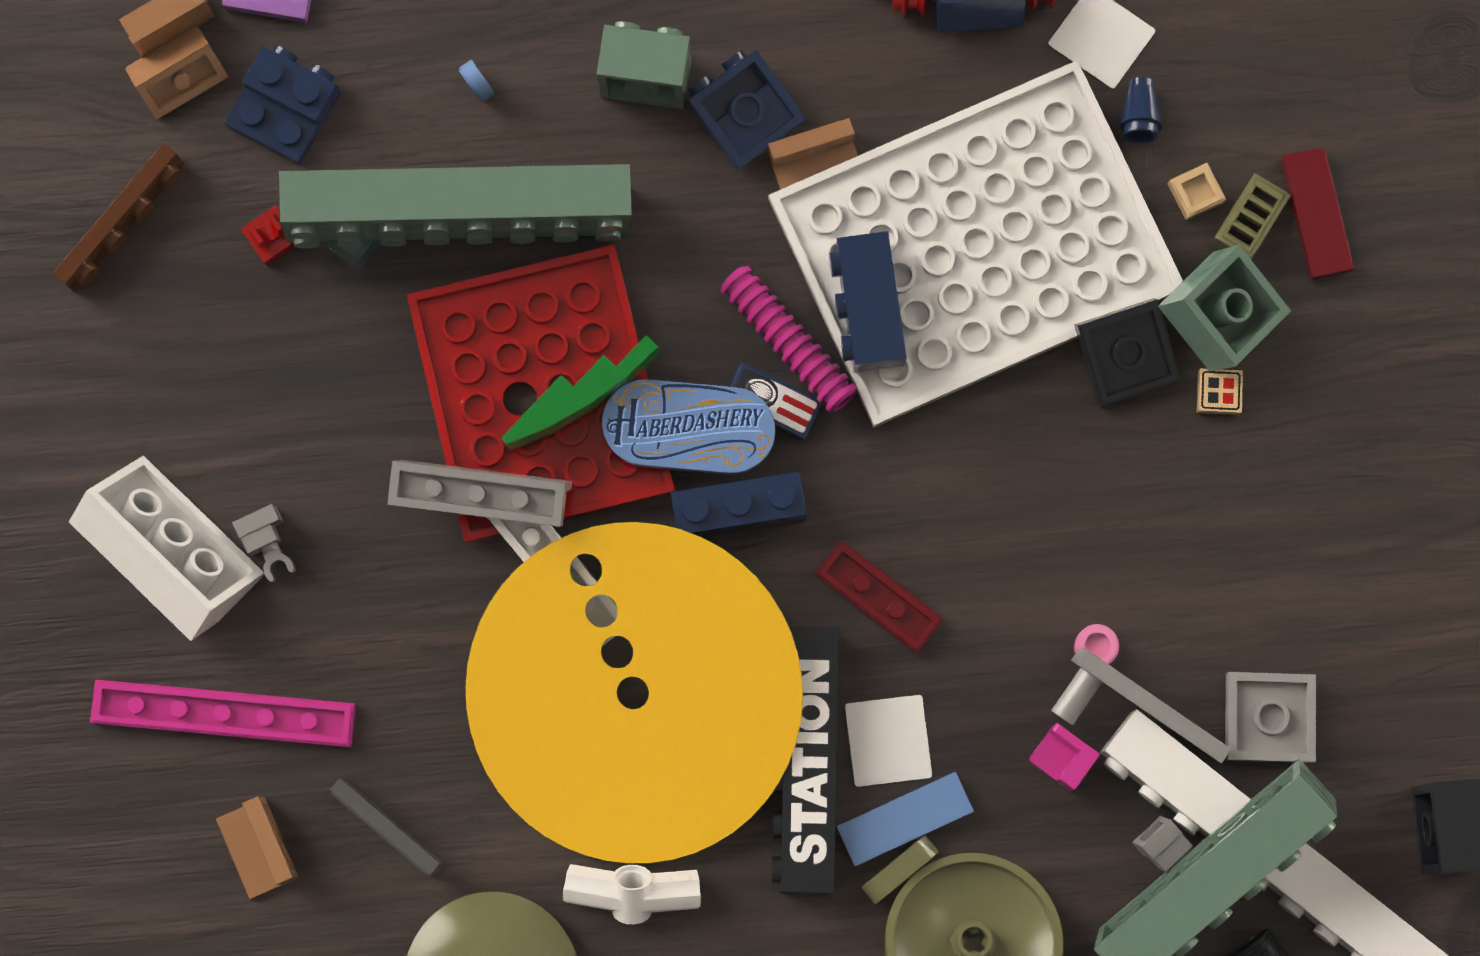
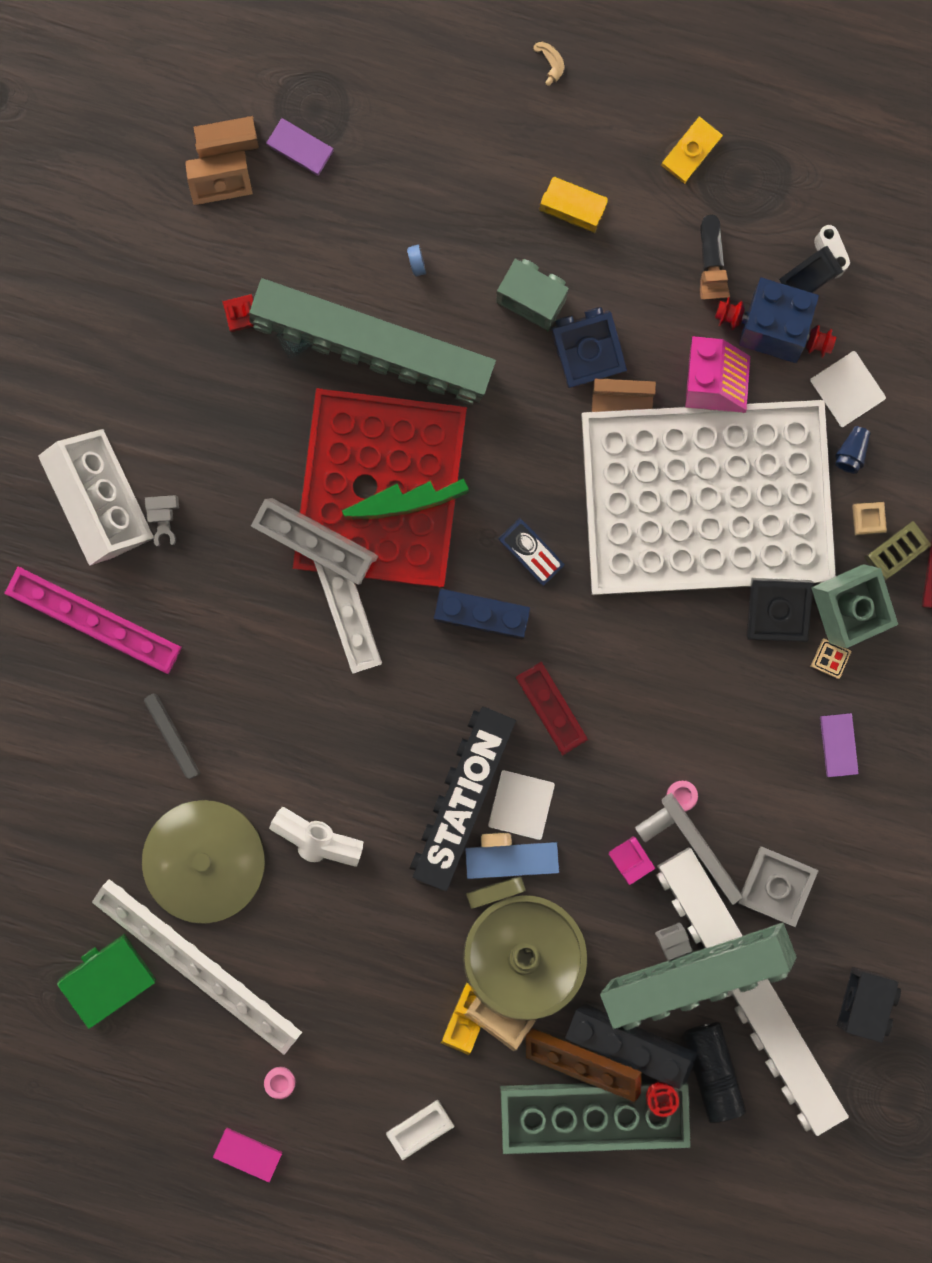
camera: 15 degrees right, 5 degrees up
(109, 230) = (135, 269): reddish brown plate -> none
(257, 847) = (83, 716): medium nougat panel -> none
(283, 103) = (282, 226): dark blue plate -> none
(688, 427) = (469, 548): medium blue tile -> none
(716, 710) = (423, 723): yellow piece -> none
(788, 339) = (558, 514): dark pink piece -> none
(868, 302) = (619, 511): dark blue brick -> none
(872, 799) = (496, 839): none -> tan tile
(925, 81) = (717, 376): none -> dark pink slope
(1276, 500) = (839, 745): none -> medium lavender tile

